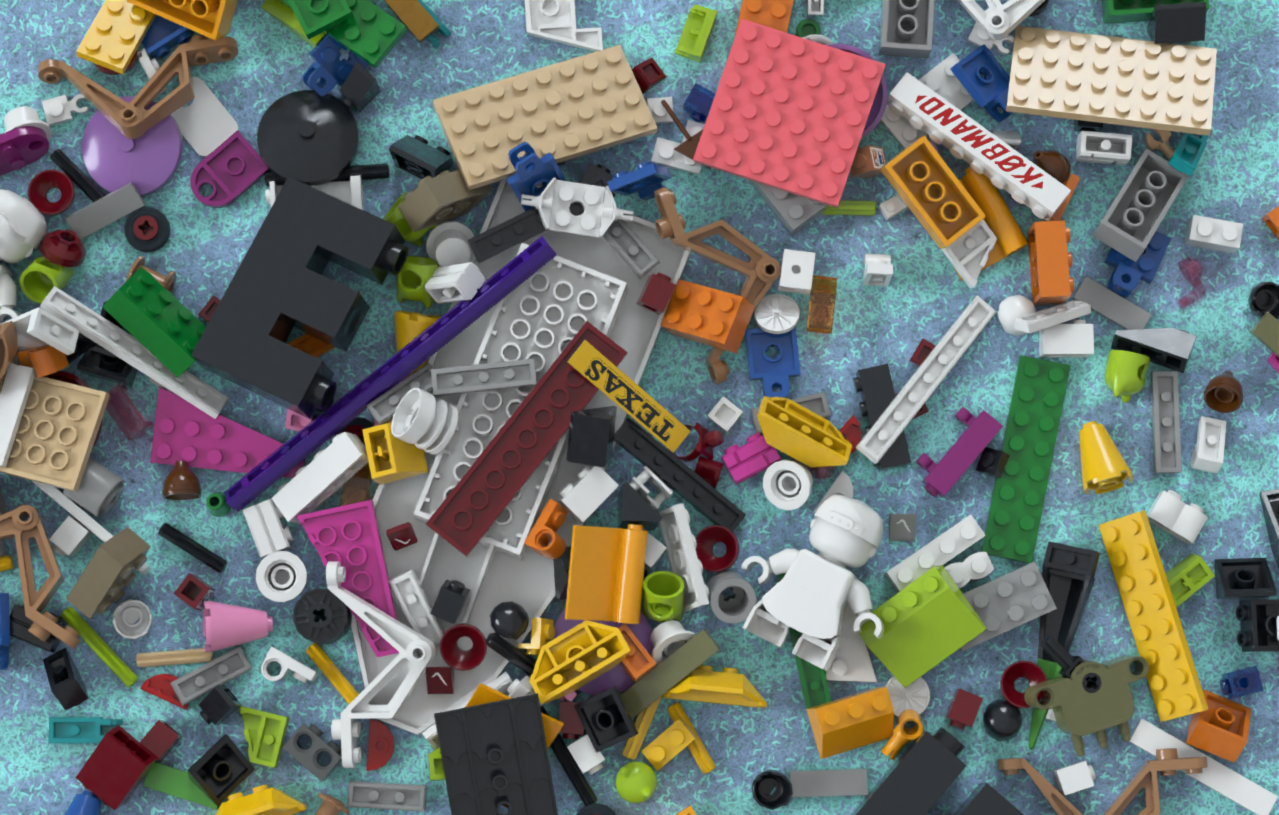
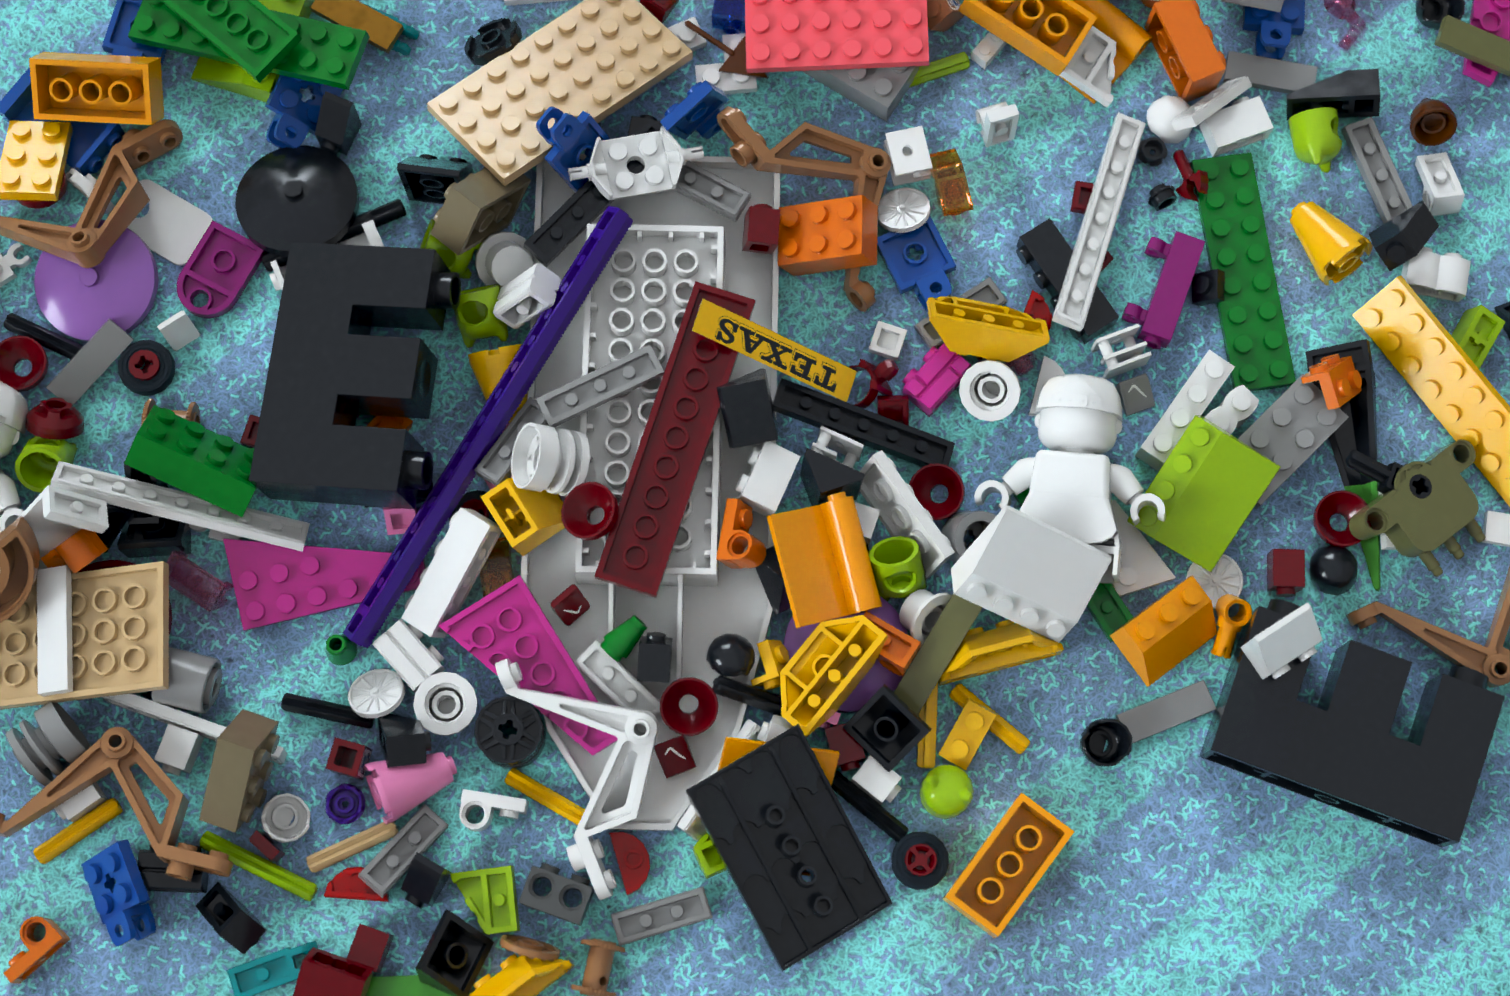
camera: 20 degrees left, 5 degrees down
(110, 635) = (266, 846): none -> dark red tile
(172, 626) = (336, 798): none -> dark purple plate
(181, 209) = (178, 330): none -> white slope
(181, 483) = (289, 641): reddish brown helmet -> none
(233, 548) = (376, 693): none -> white wheel
(239, 593) = (403, 740): none -> black slope
(278, 784) = (529, 947): none -> medium nougat wheel
(430, 578) = (623, 638): none -> green cone
(432, 466) = (581, 503): none -> dark red piece
(505, 63) = (494, 40): none -> black tile
(757, 643) = (1030, 573): none -> white slope
(914, 491) = (1131, 353): none -> white piece
(930, 768) = (1284, 642): none -> white slope
(985, 375) = (1162, 196): none -> black plate
(997, 331) = (1155, 144): none -> black plate
(1019, 374) = (1200, 178): none -> dark red bar
(1058, 575) = (1337, 379): none -> orange bracket
(1074, 777) = (1441, 603): white brick -> none
(1161, 478) = (1404, 235): none -> black slope

